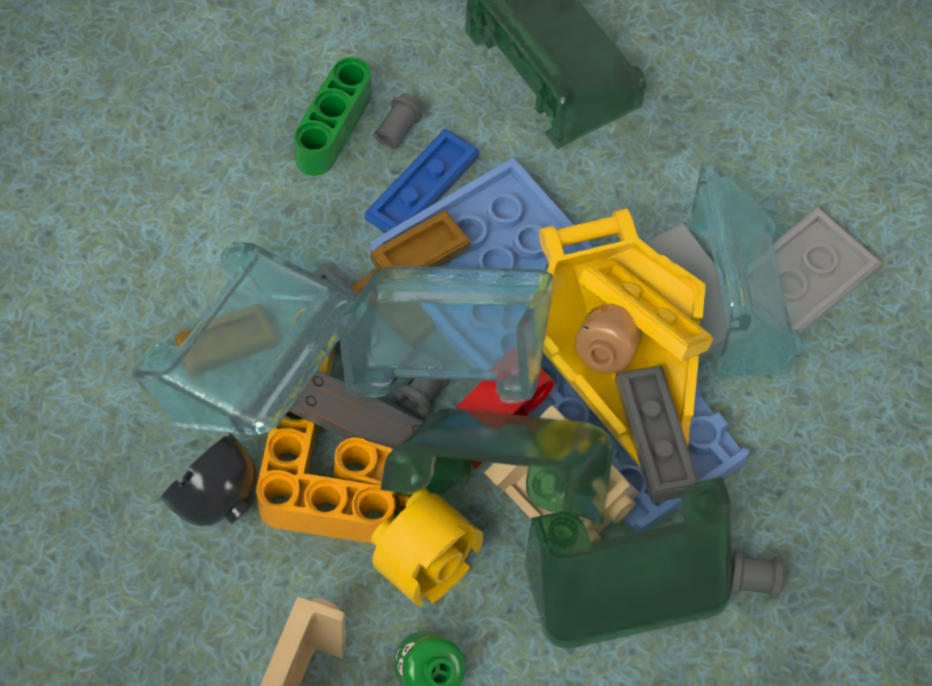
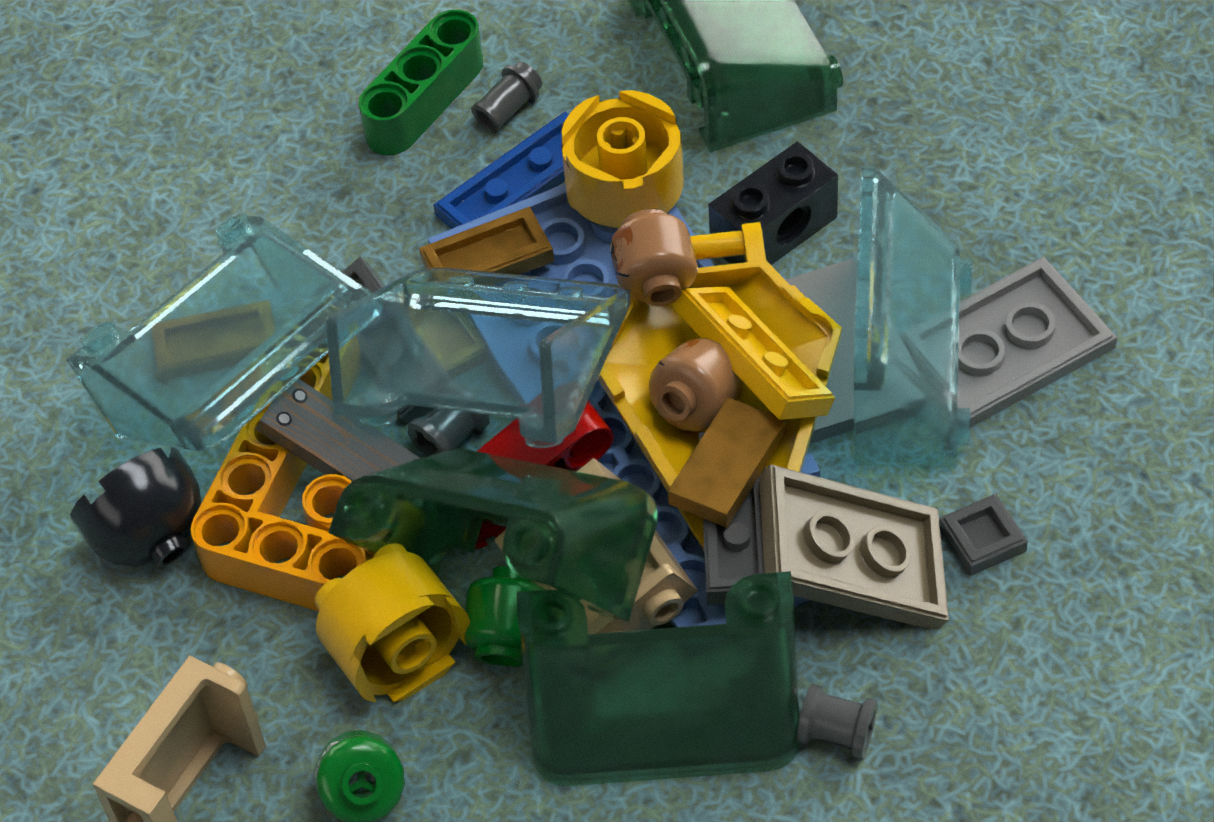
camera: 20 degrees right, 5 degrees down
(504, 528) = (494, 617): none -> green head
(510, 168) = (622, 157): none -> yellow brick
(563, 246) = (653, 257): none -> medium nougat head
(626, 182) = (787, 195): none -> black brick
(646, 395) = (727, 462): none -> pearl gold tile
(744, 443) = (854, 547): none -> dark tan tile
(821, 421) = (983, 534): none -> dark grey tile

